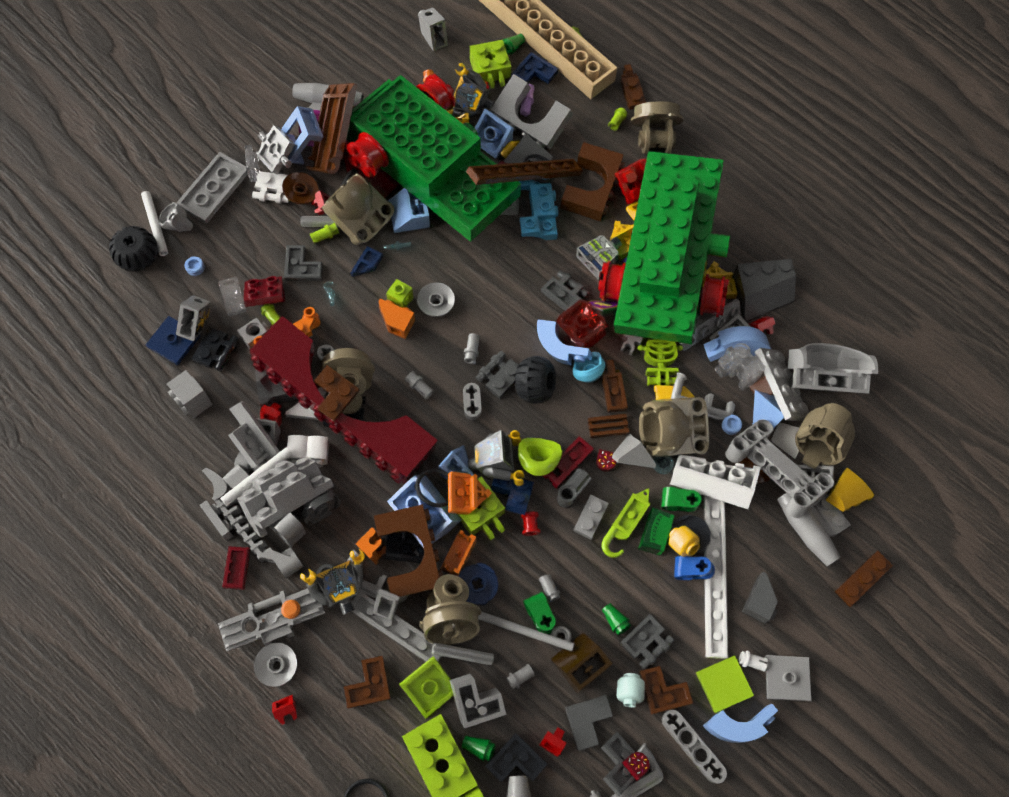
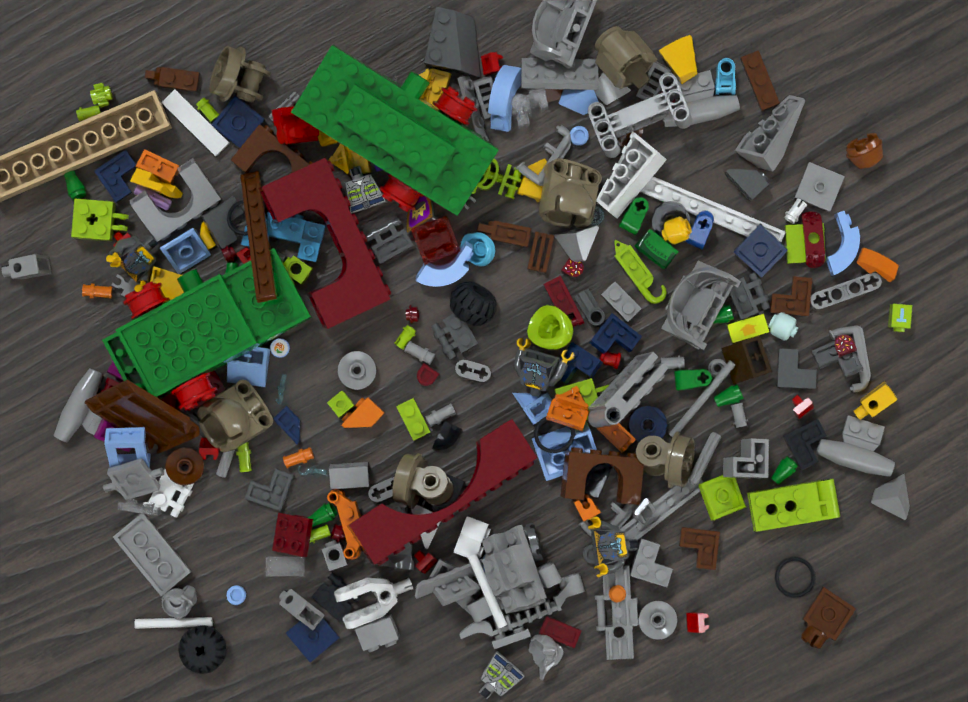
camera: 65 degrees left, 20 degrees up
(175, 522) = (499, 676): none -> torso
(210, 561) = (545, 653): none -> light grey hair
(234, 375) = (375, 610): none -> white piece
(290, 312) = (323, 514): none -> green cone
(327, 632) = (644, 564): none -> light grey brick
(335, 323) = (349, 475): none -> light grey hinge
(340, 279) = (298, 457): none -> orange pin
(340, 393) = (444, 493): reddish brown plate -> none
(401, 396) = (447, 436): none -> black brick
(408, 362) = (413, 419): none -> lime plate
(433, 233) = (279, 347): none -> tile
(452, 362) = (426, 375): none -> dark red tile
(483, 332) = (405, 337): none -> lime pin
(484, 531) = (626, 390): none -> light grey hinge
(505, 331) = (412, 314): none -> dark red plate
(508, 231) = (305, 272): none -> lime brick
(516, 270) = (360, 281): none -> dark red arch
(537, 659) = (729, 396): none -> green cone
(539, 91) = (150, 181): none -> yellow slope
(552, 91) = (158, 166): none -> orange hinge
(560, 519) = (617, 331): none -> dark blue plate
(596, 38) = (101, 94): none -> lime gear
(602, 114) = (195, 122): none -> white tile
(615, 653) = (747, 328): none -> neon yellow tile
(619, 141) = (237, 121): none -> dark blue plate
(619, 586) = (697, 304): none -> light grey piece
(699, 637) = (760, 250): none -> dark blue plate
(720, 695) = (814, 251): none -> dark red piece
(738, 765) = (874, 261): none -> orange slope
(810, 609) = (769, 141): none -> light grey wedge
(847, 712) = (865, 152): none -> dark orange cone
(848, 541) = (724, 78): none -> medium azure piece

